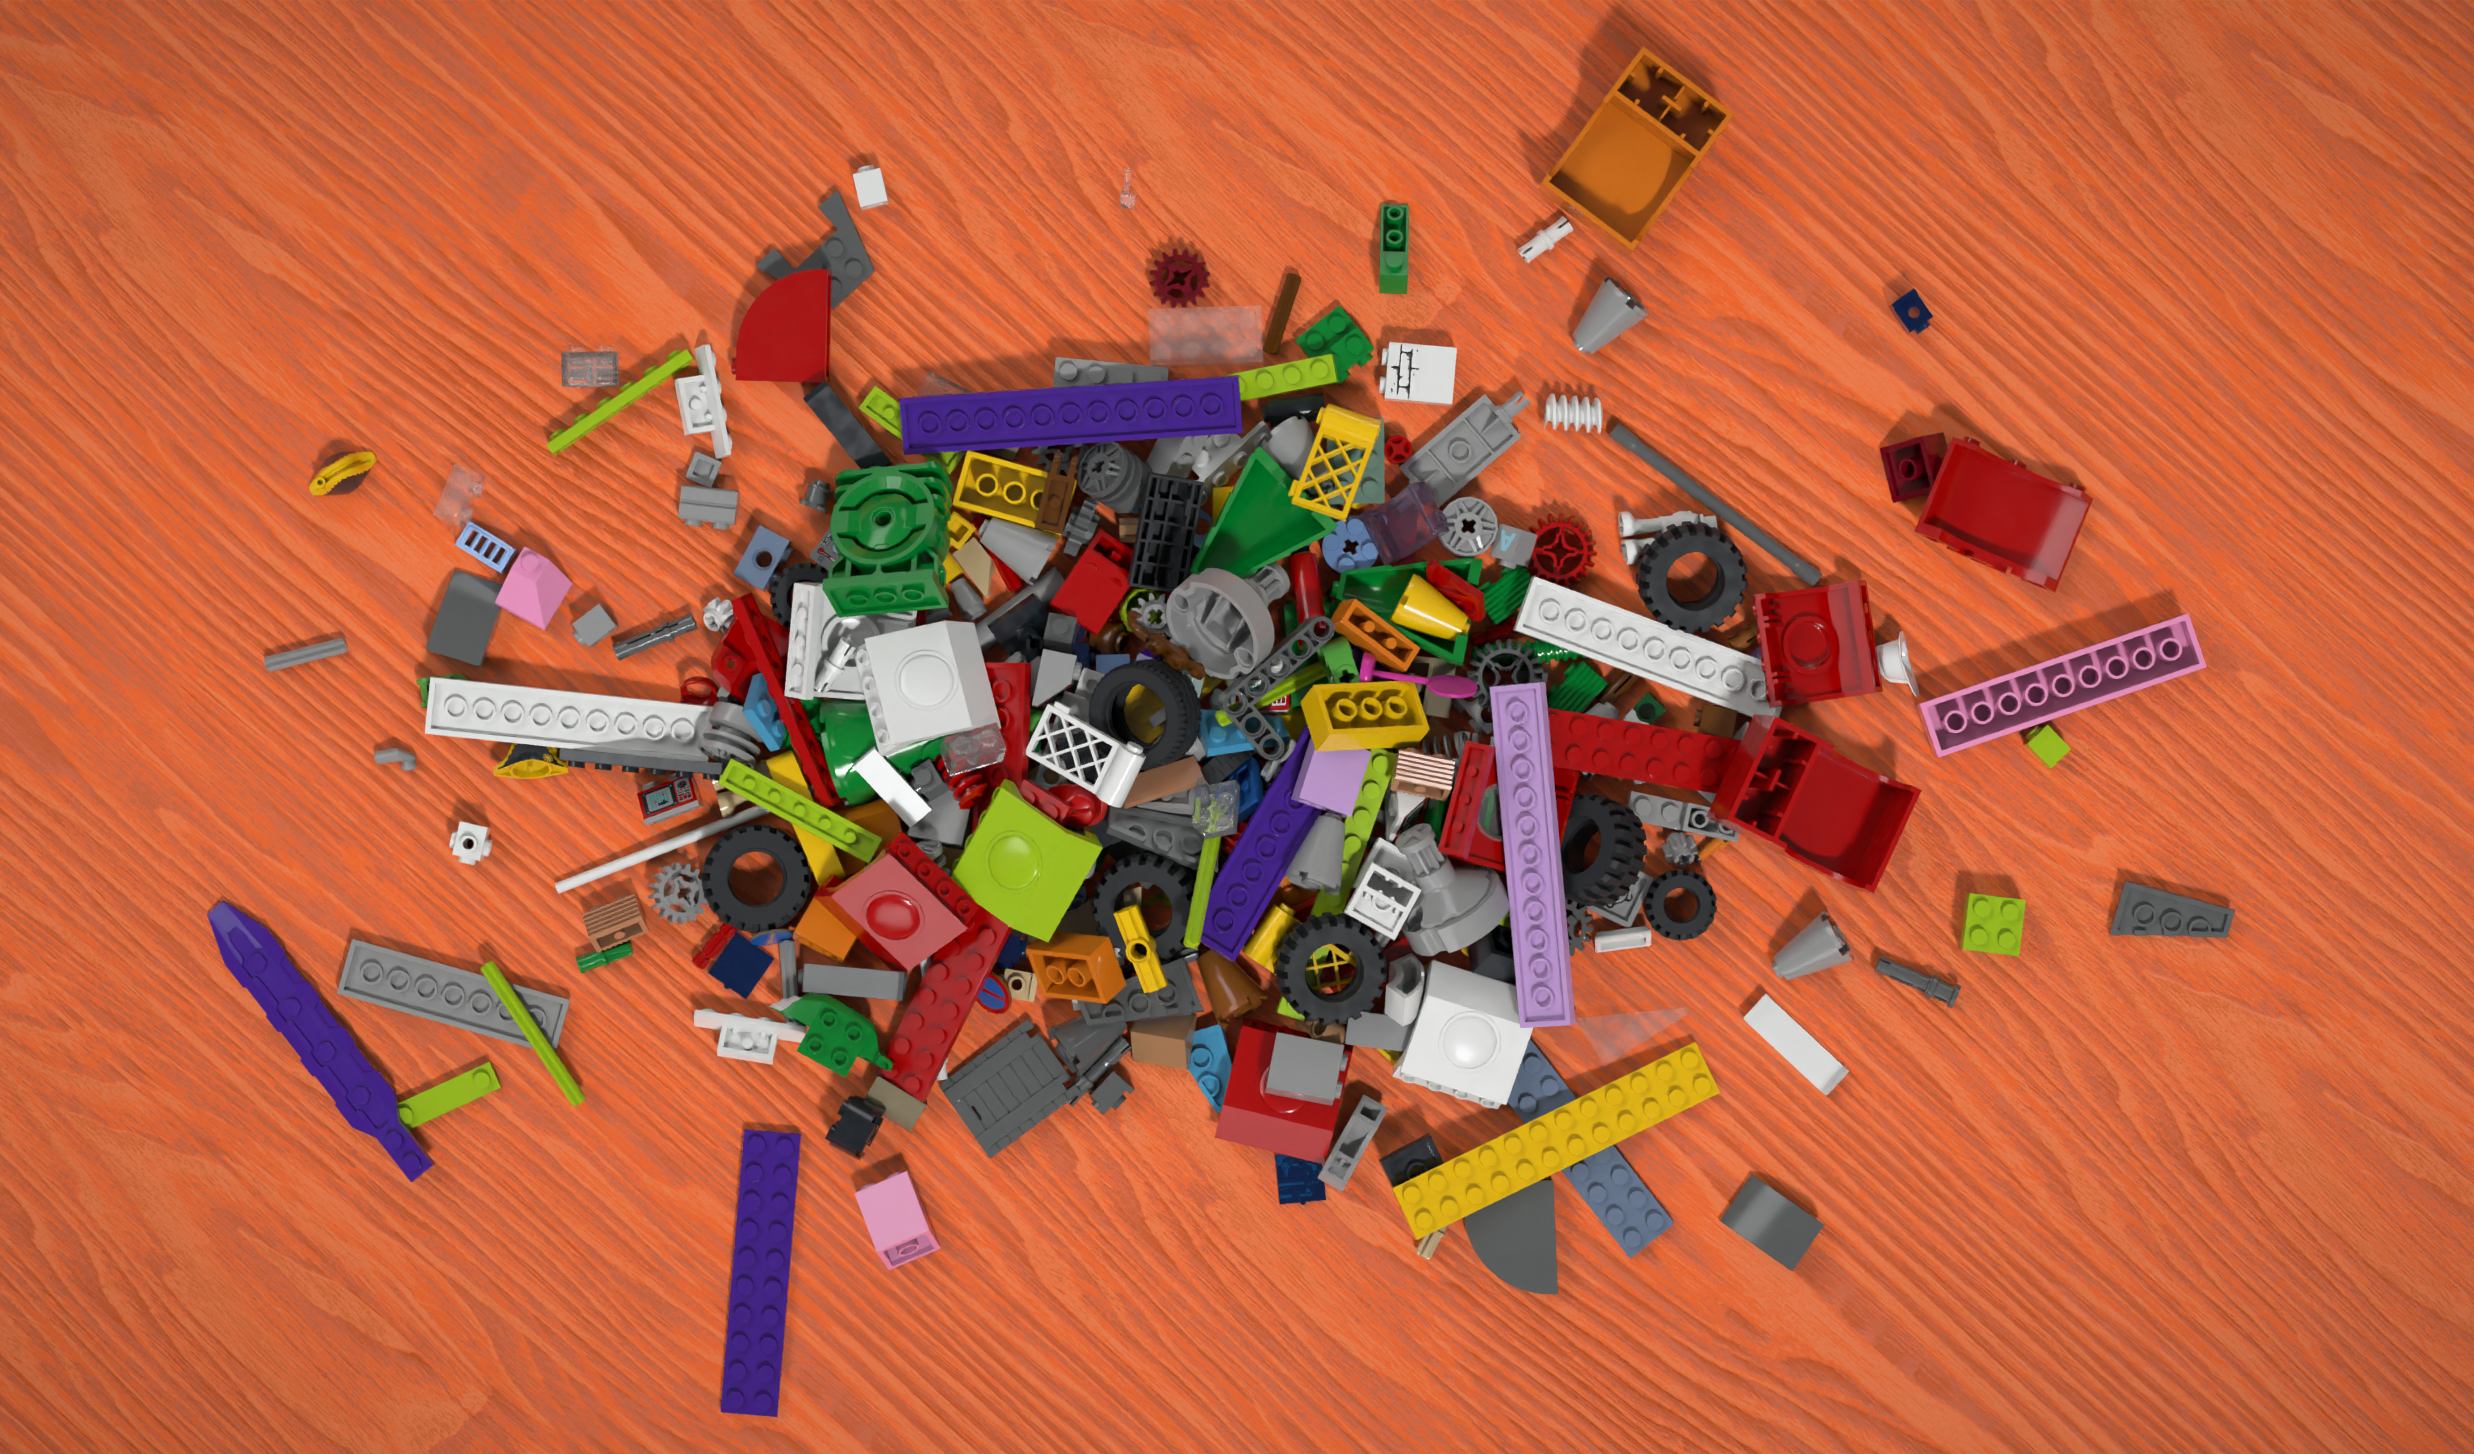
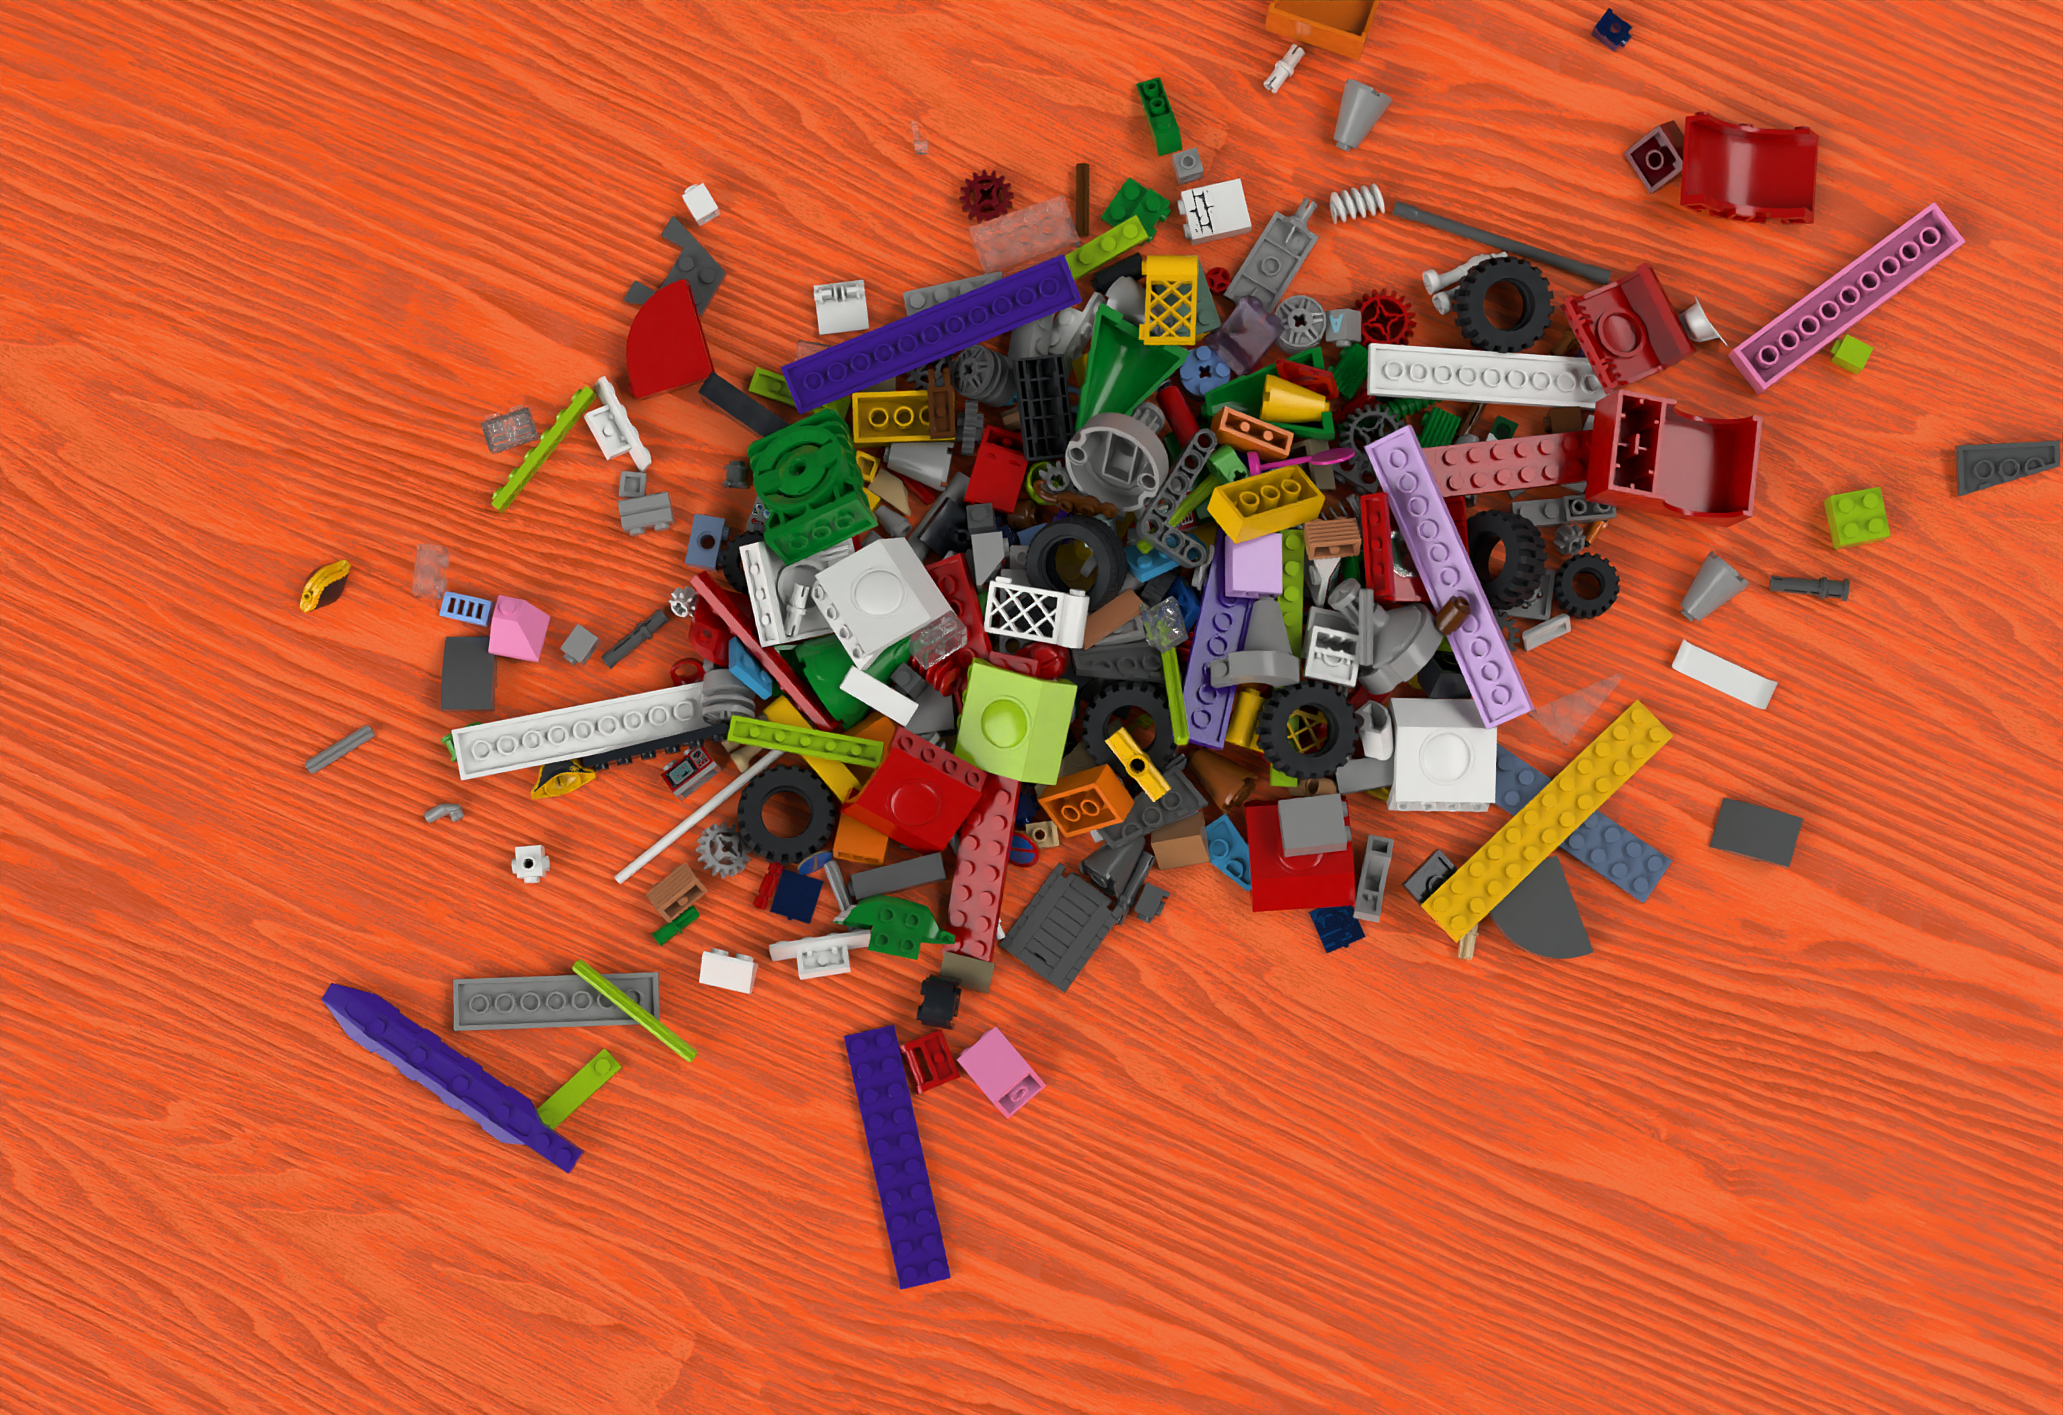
camera: 15 degrees left, 5 degrees down
(644, 1024) = (728, 972): none -> white slope
(836, 1184) = (938, 1059): none -> red plate
(986, 348) = (841, 307): none -> white hinge
(1295, 889) = (1255, 666): none -> light grey arch
(1405, 315) = (1187, 166): none -> light grey brick
(1425, 882) = (1366, 626): none -> light grey axle
(1522, 898) = (1453, 615): none -> reddish brown brick

